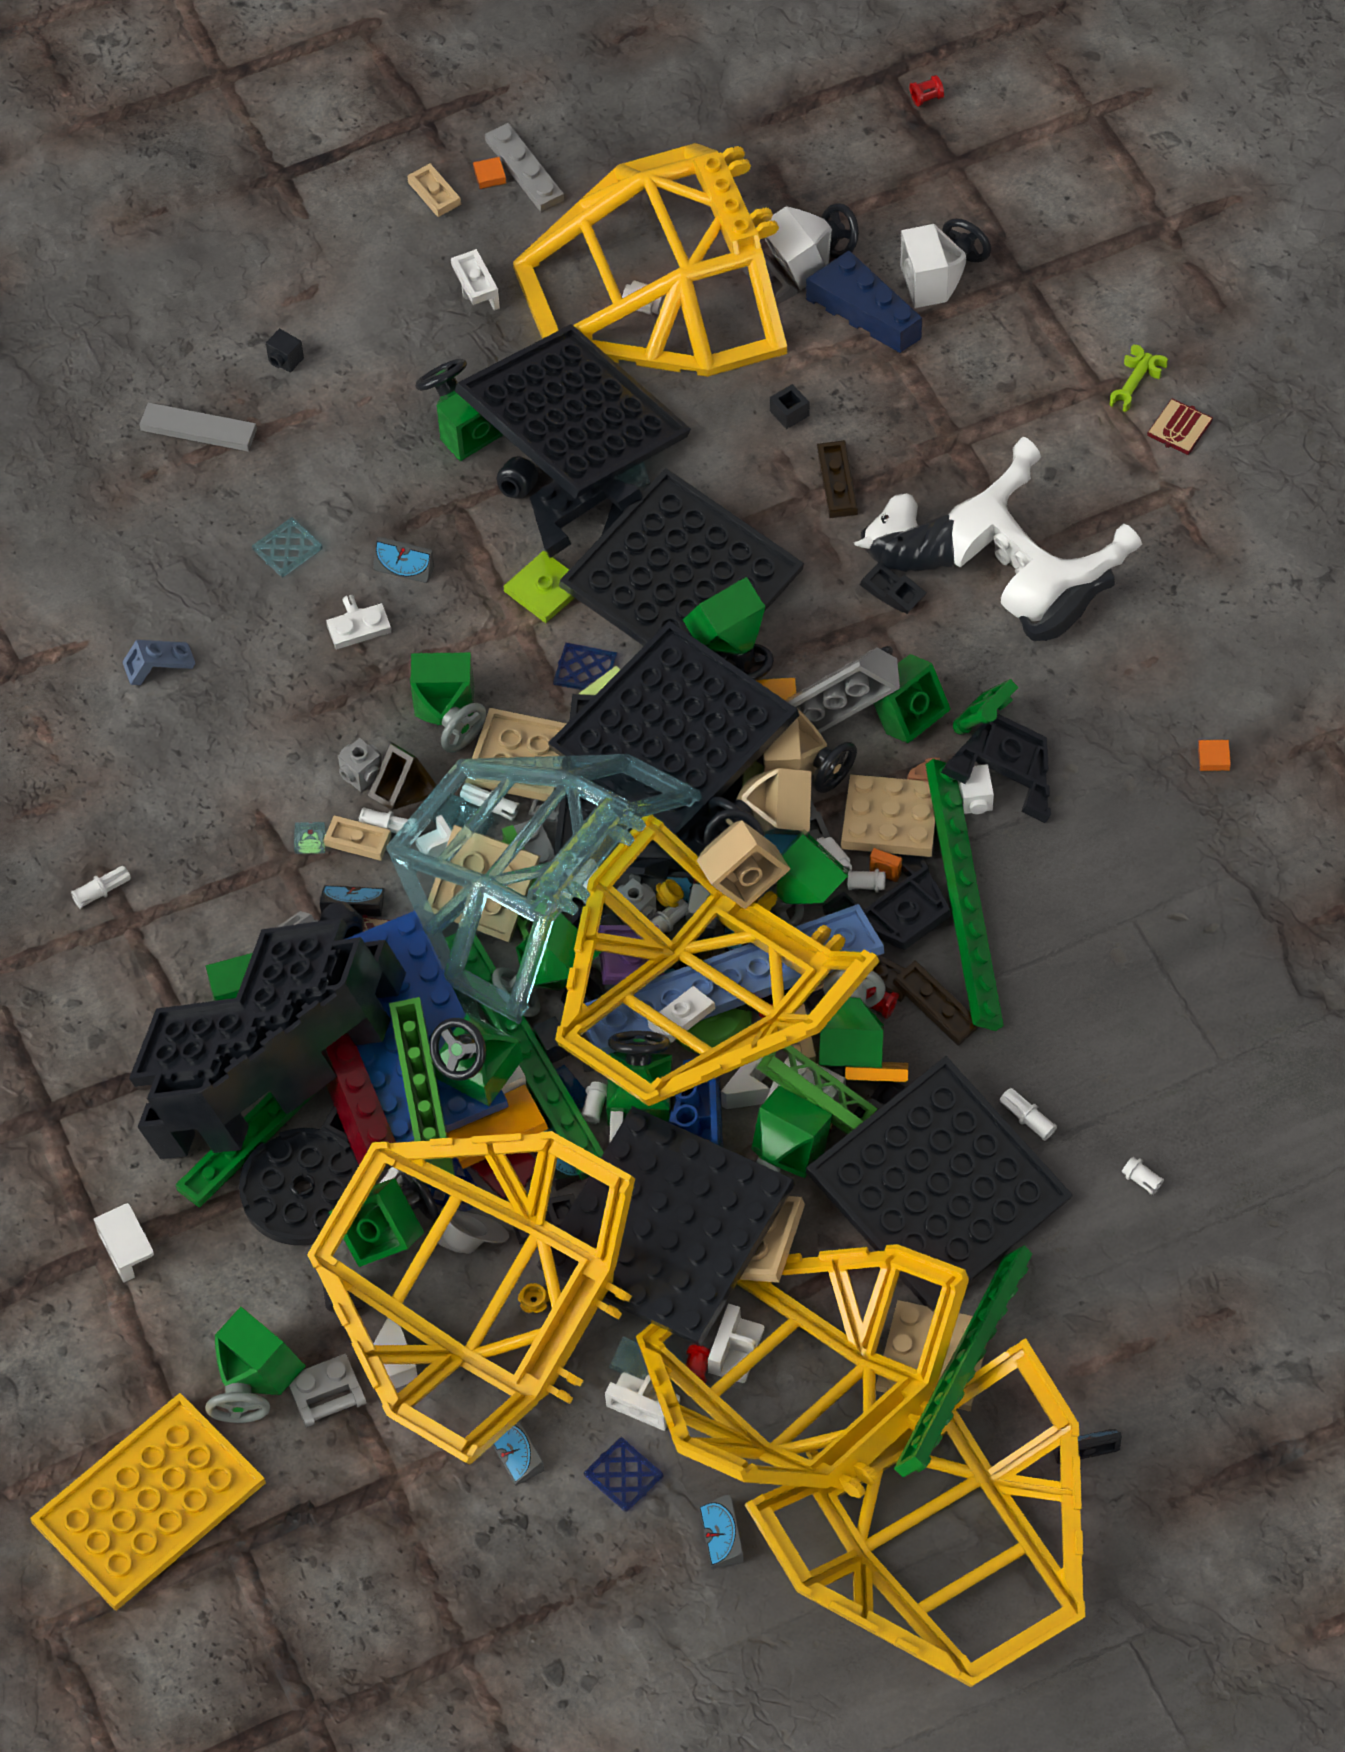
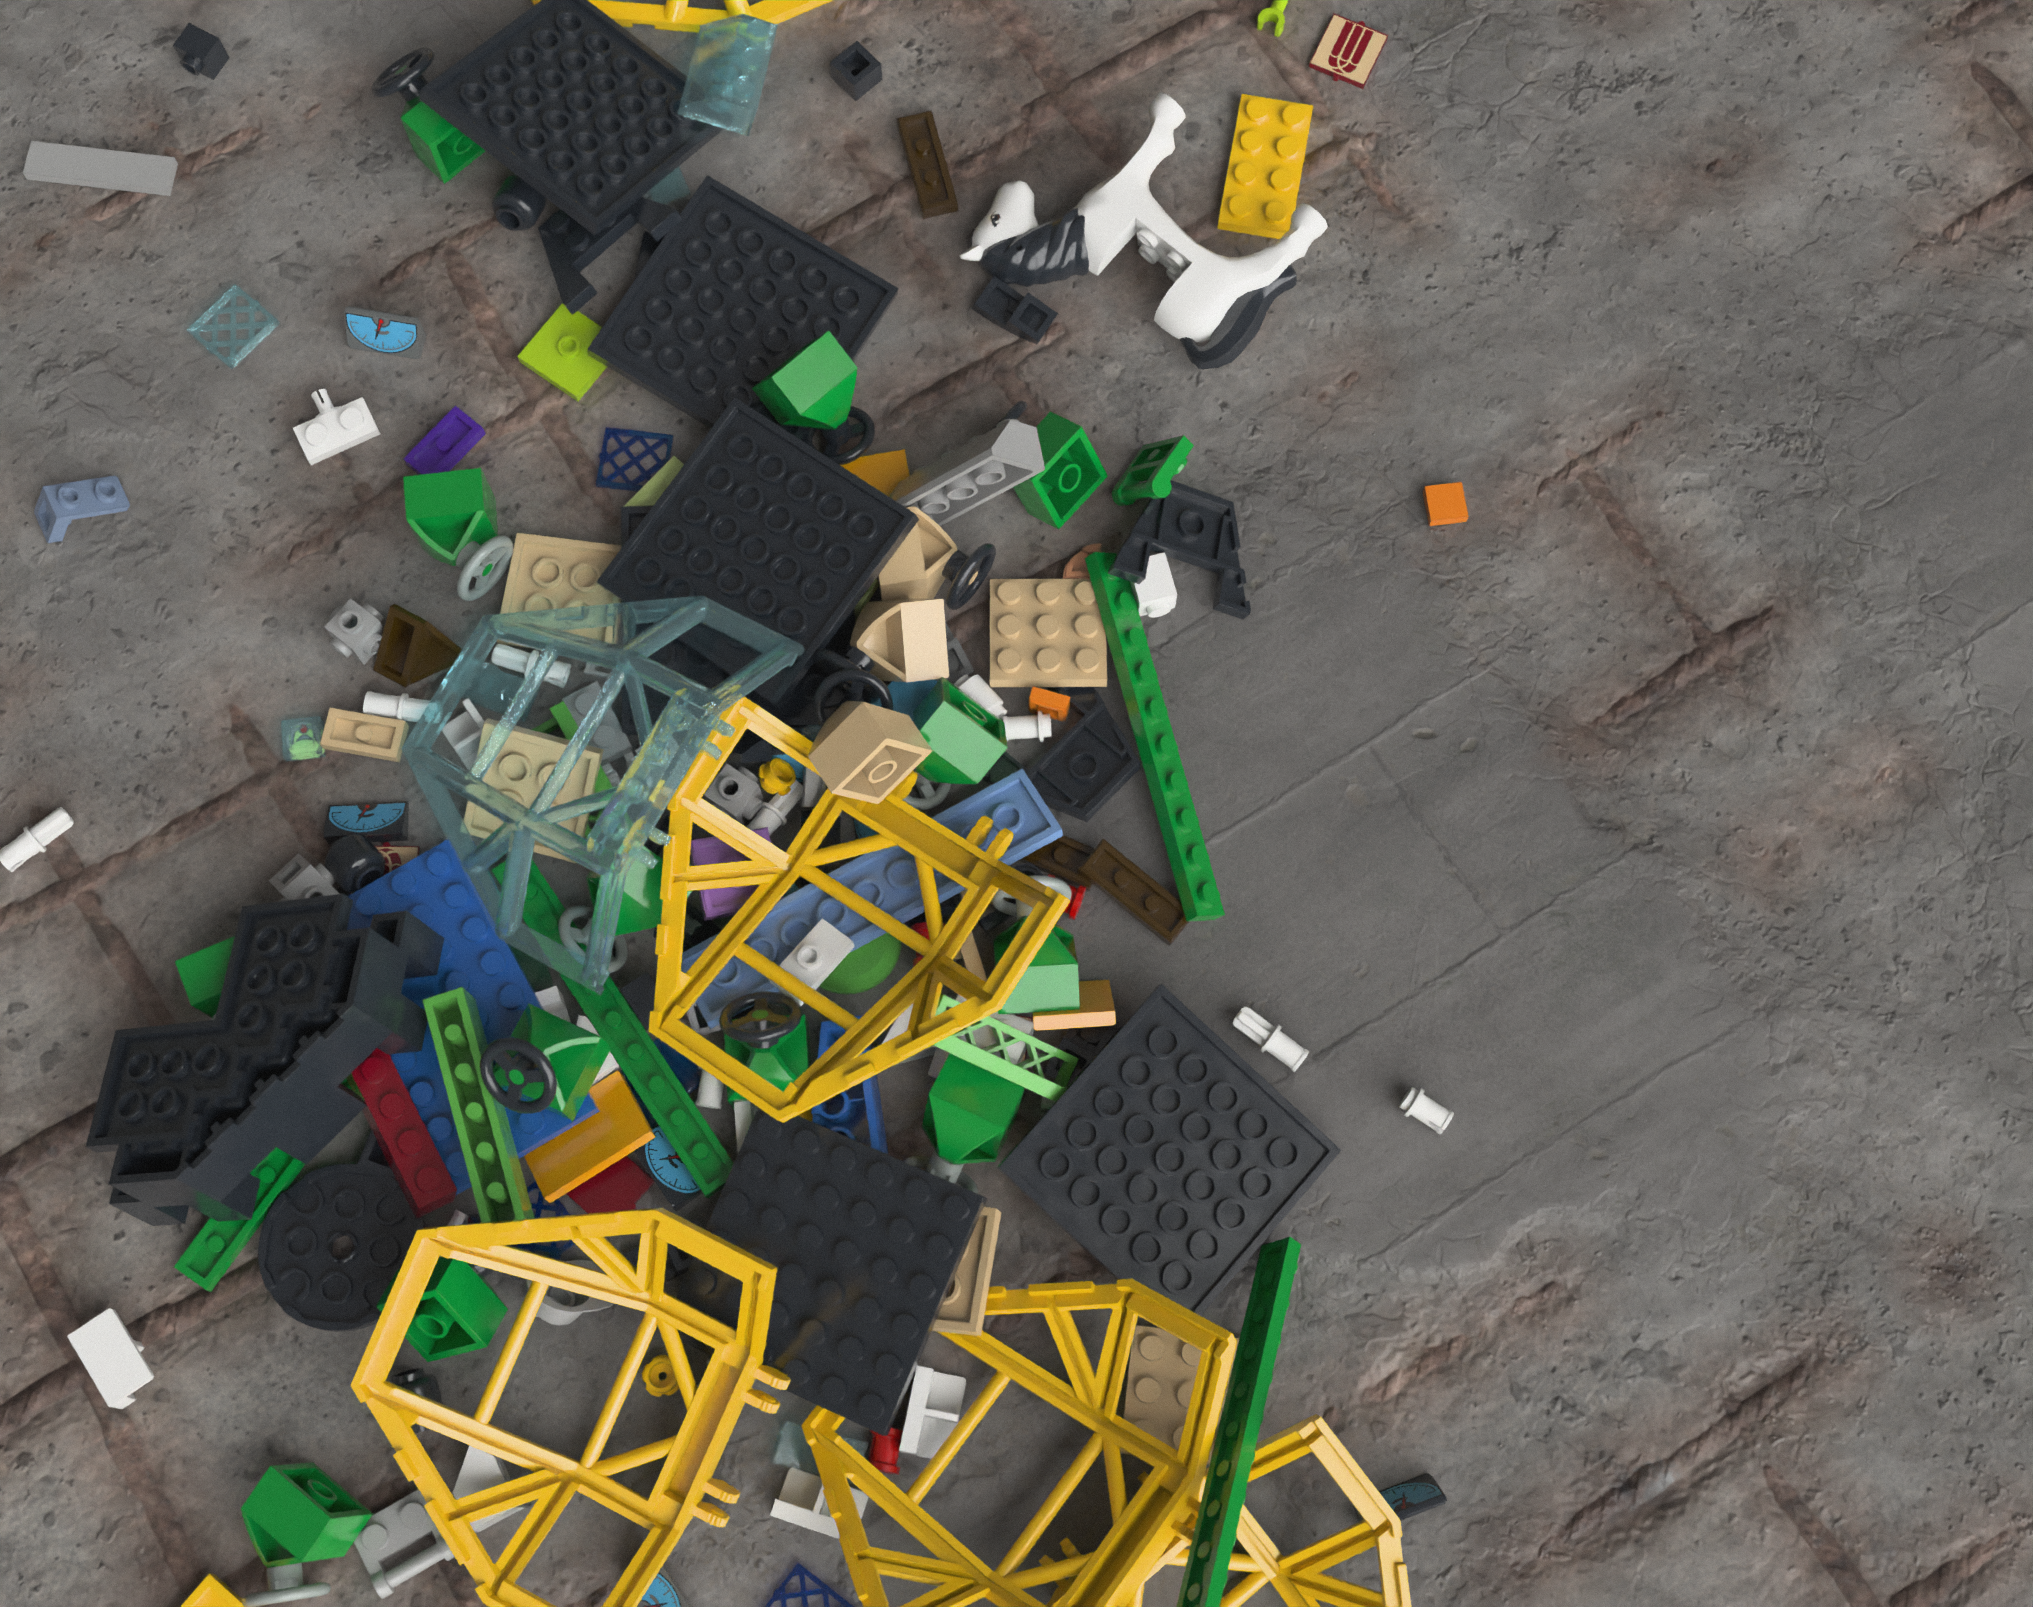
camera: 10 degrees left, 15 degrees up
(445, 638) = (445, 444): none -> dark purple plate
(690, 398) = (728, 72): none -> clear light blue slope
(1102, 501) = (1265, 166): none -> yellow plate

